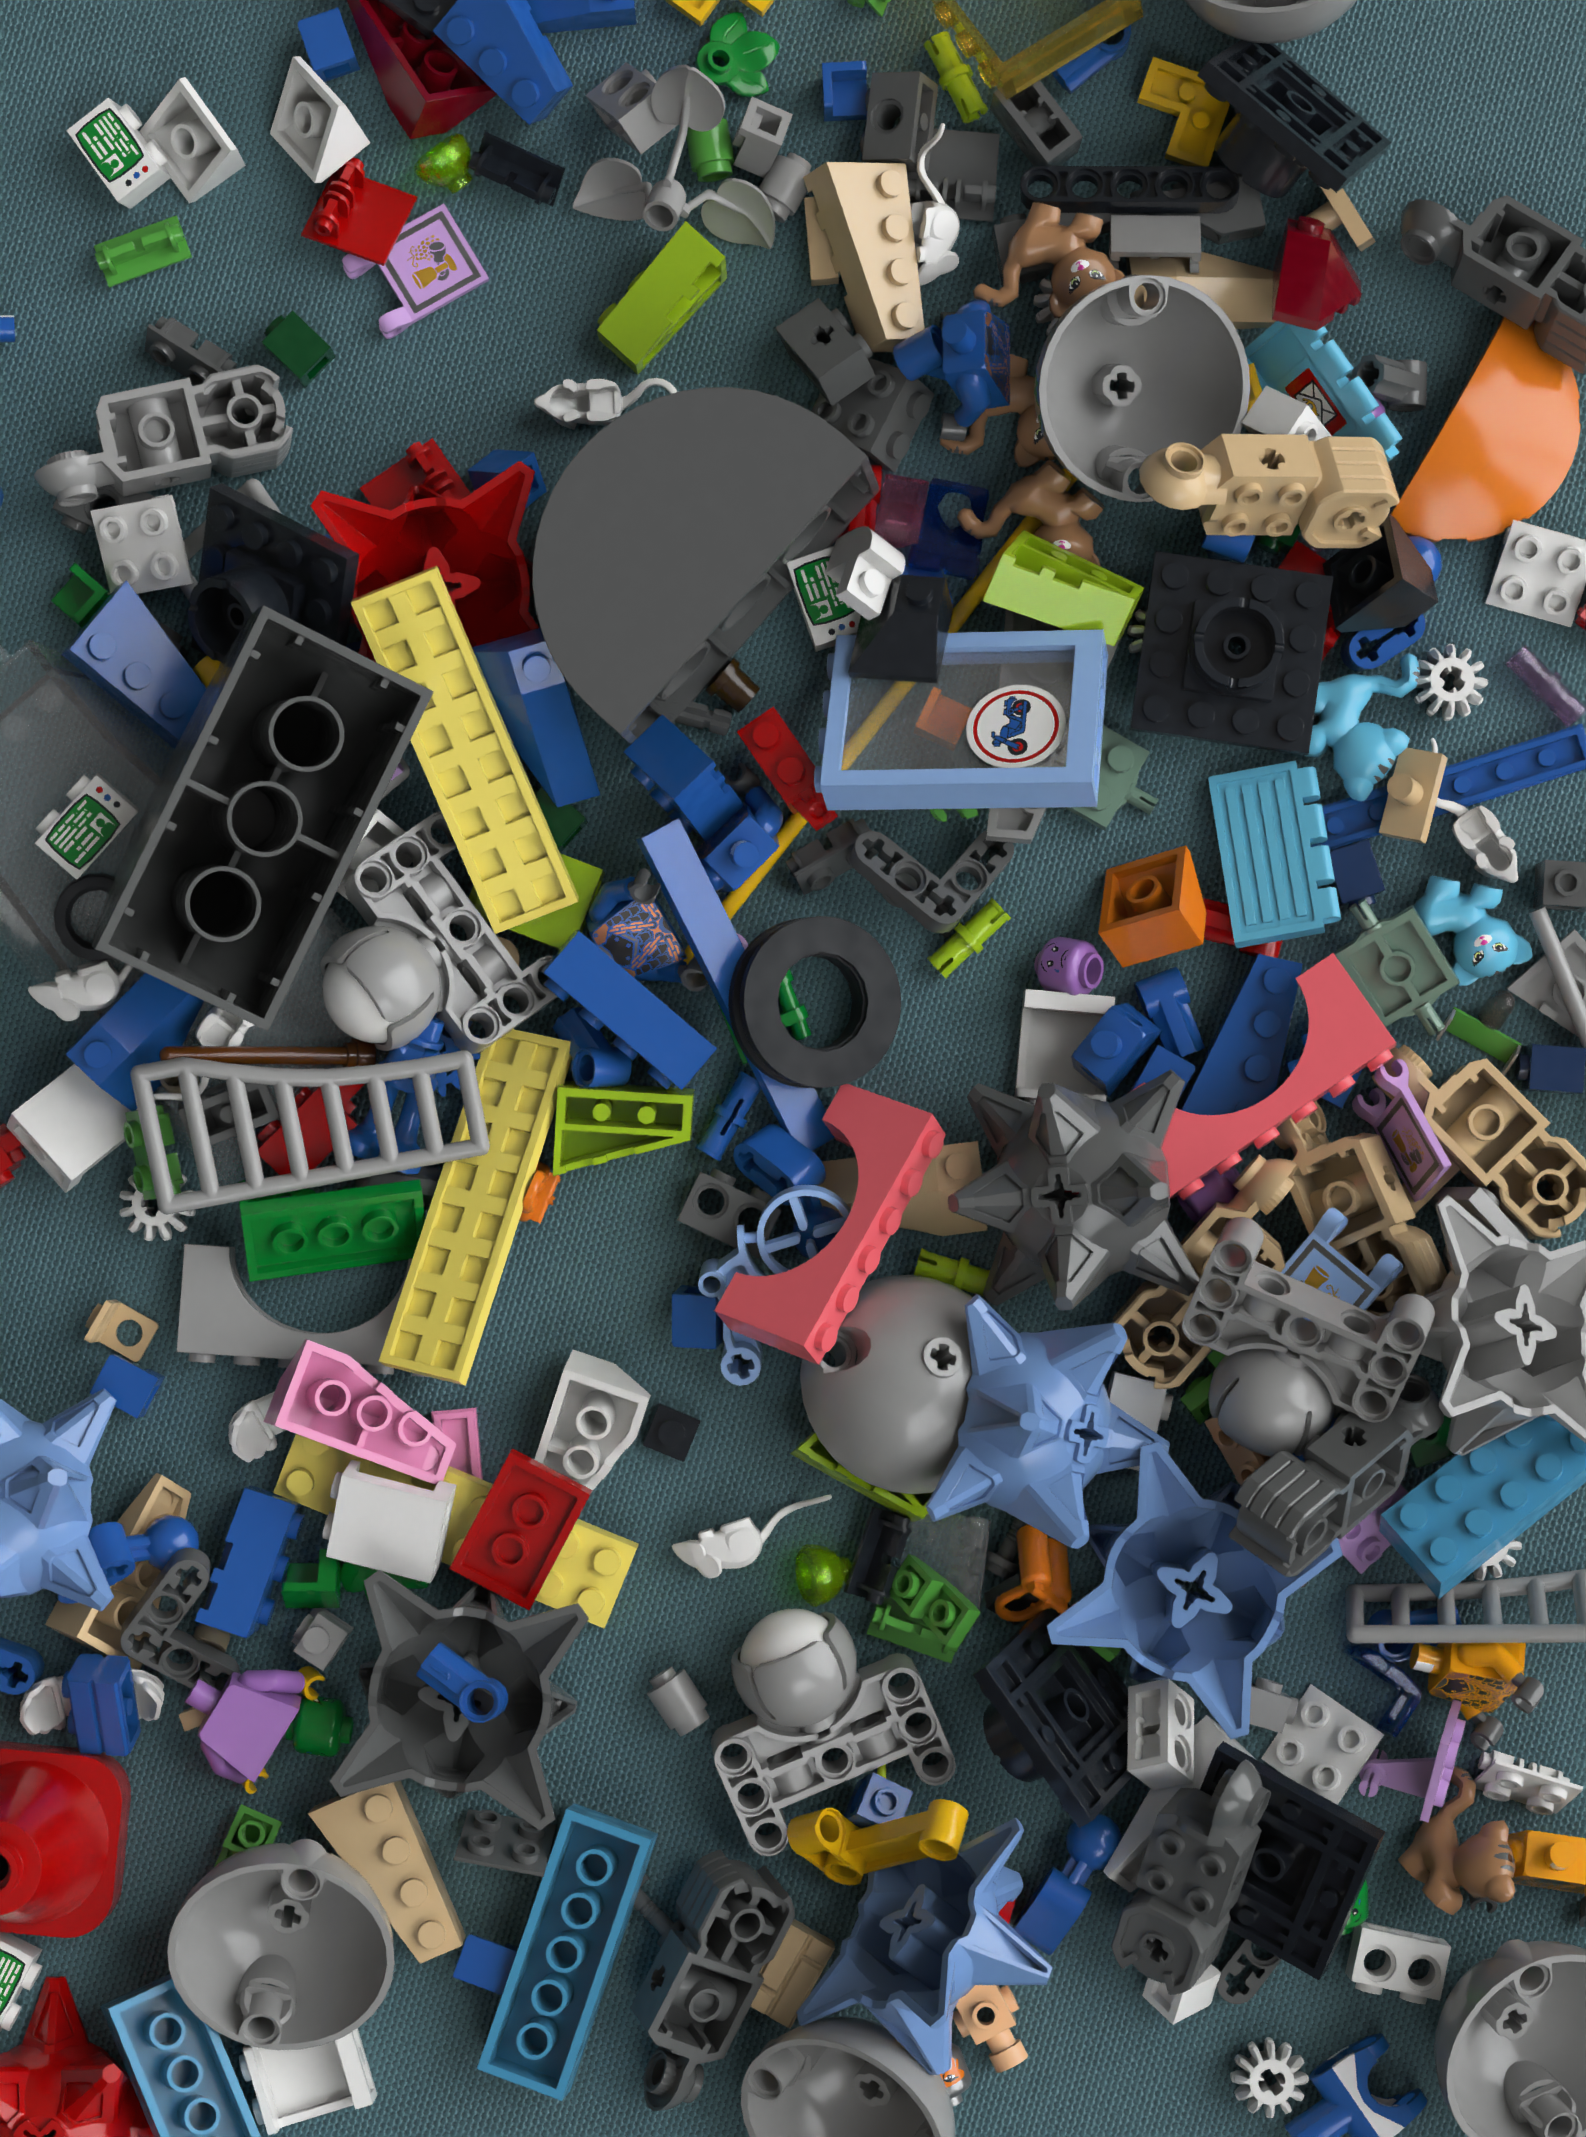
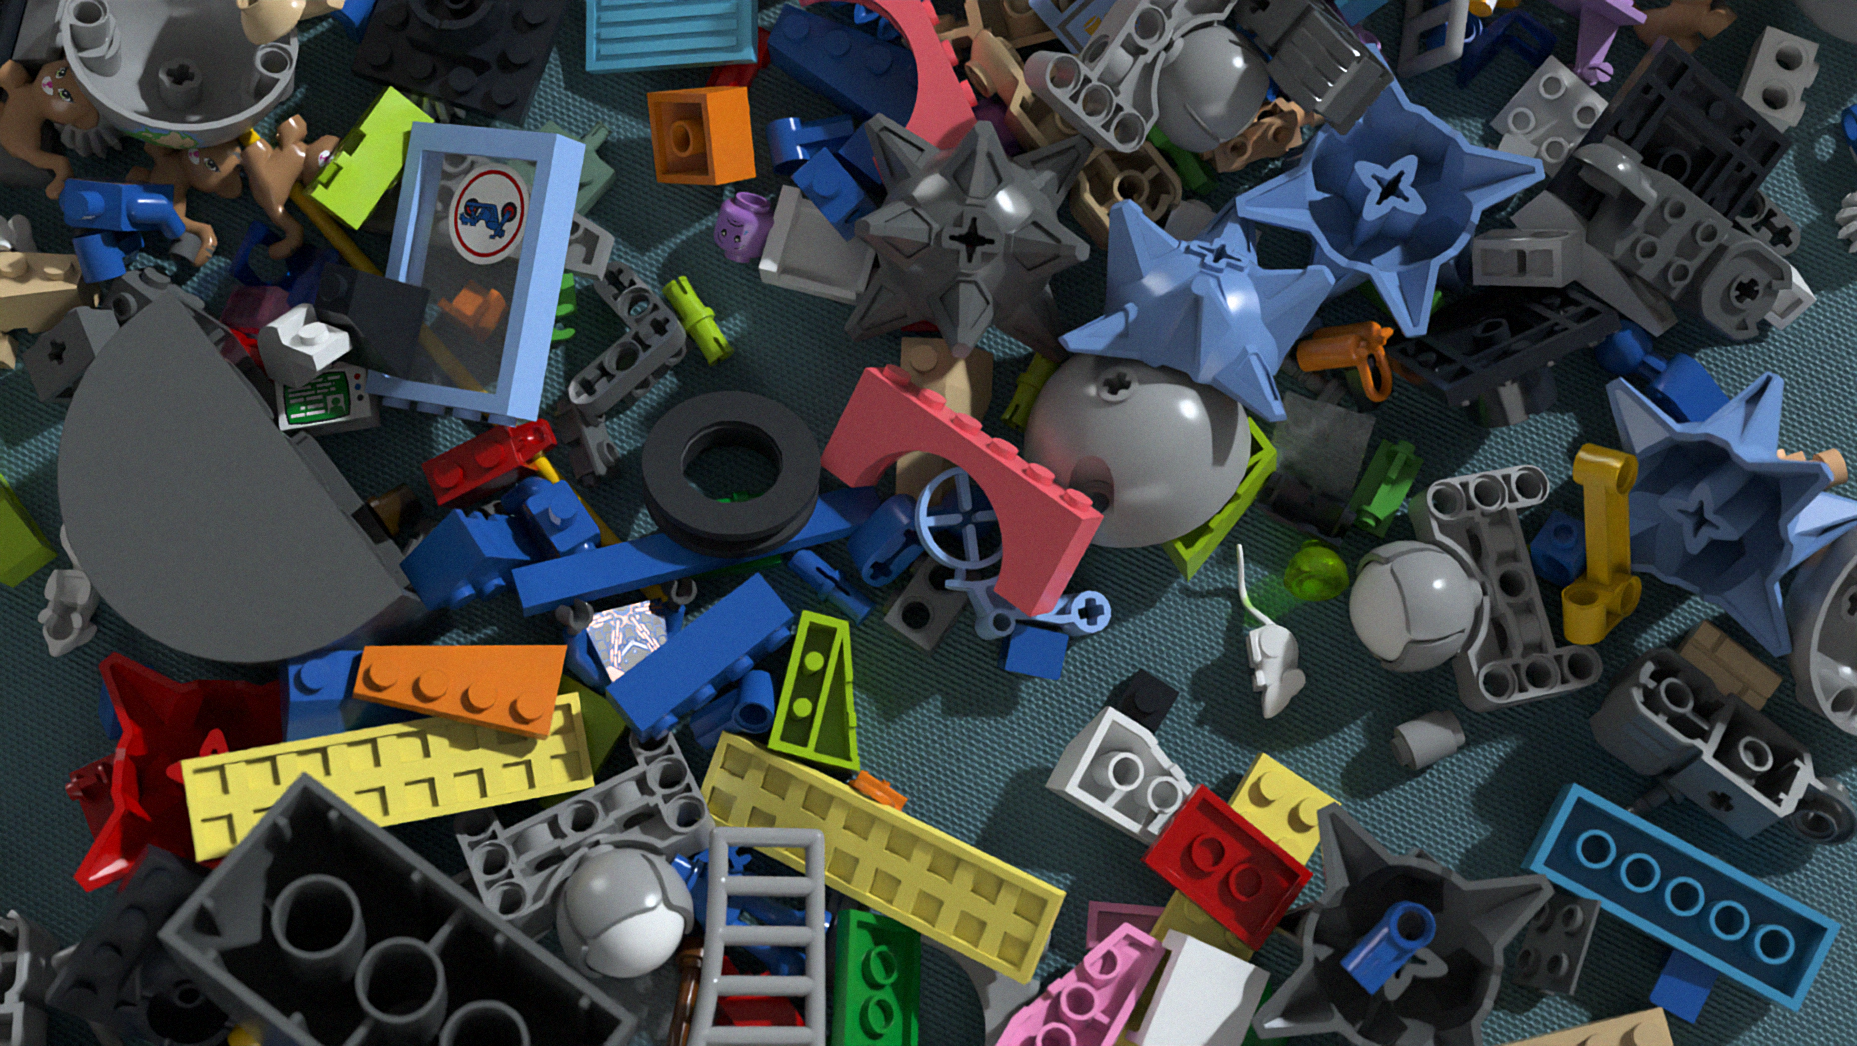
camera: 80 degrees left, 10 degrees down
(561, 809) = (472, 684): none -> orange wing
(933, 1600) = (1361, 458): bright green slope -> none

